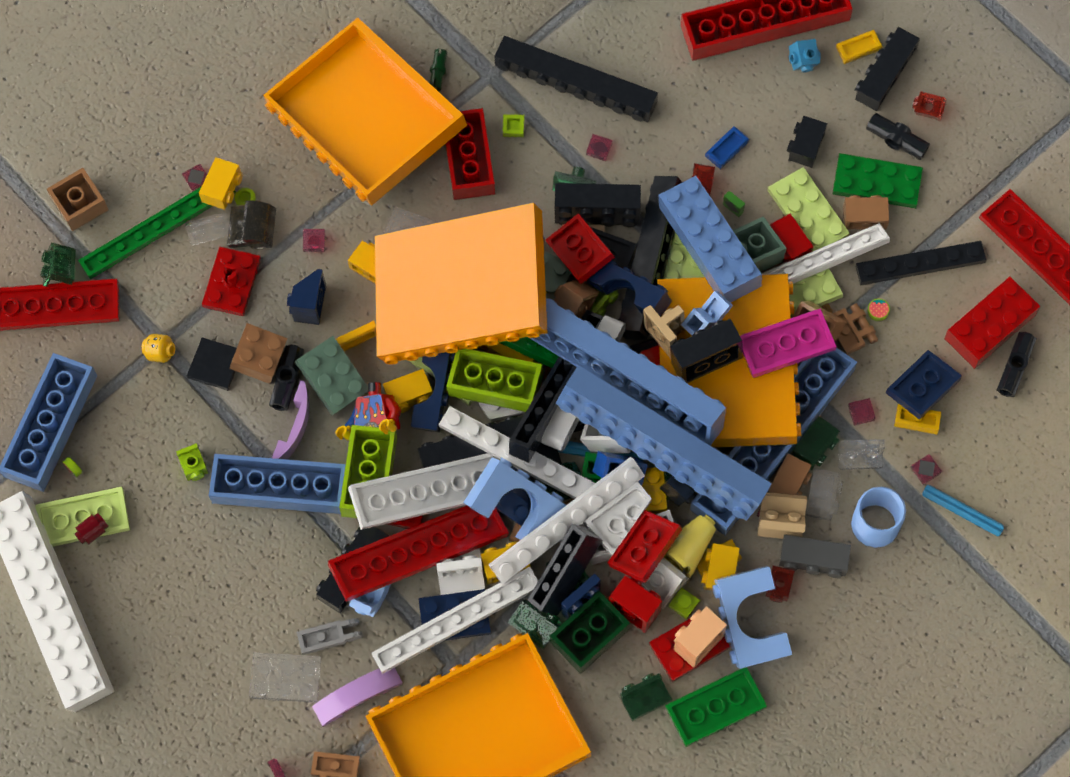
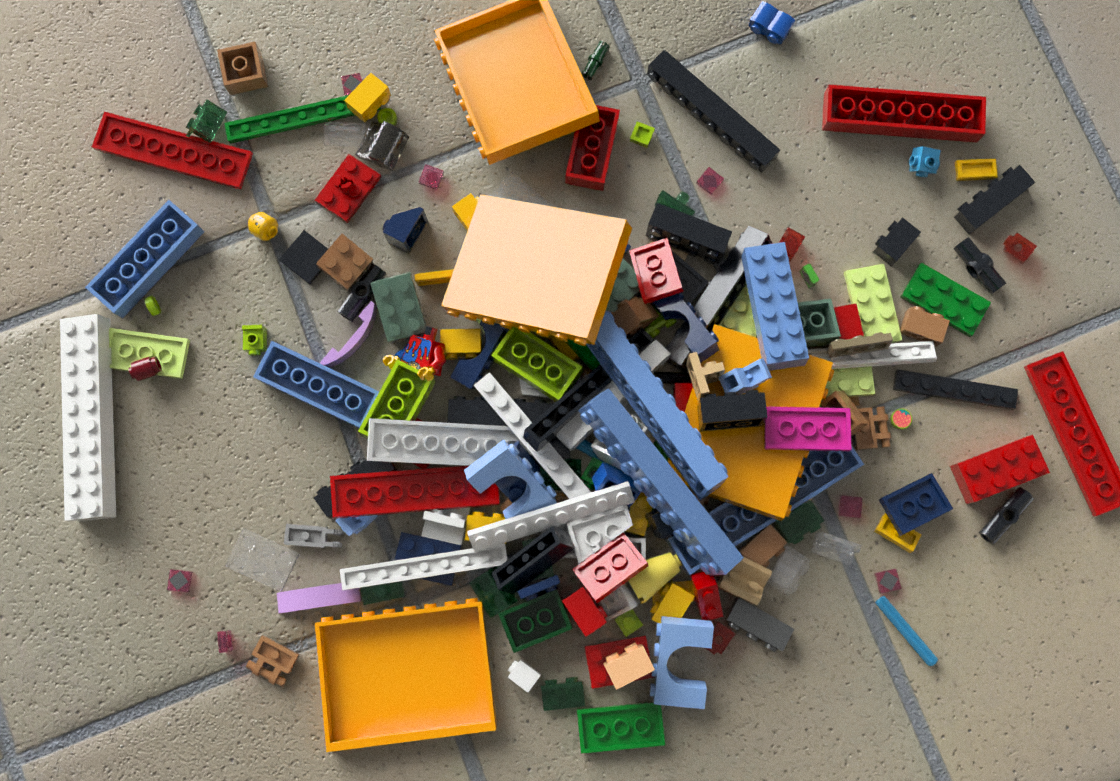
camera: 20 degrees right, 10 degrees up
(205, 731) = (179, 580): none -> tile
(421, 665) = (382, 592): none -> clear green tile
(598, 691) = (523, 674): none -> white brick
(727, 147) = (822, 221): blue tile -> none
(751, 543) = (706, 596): none -> red brick
(808, 250) = (859, 344): none -> dark tan plate
(881, 497) = (848, 619): light blue piece -> none

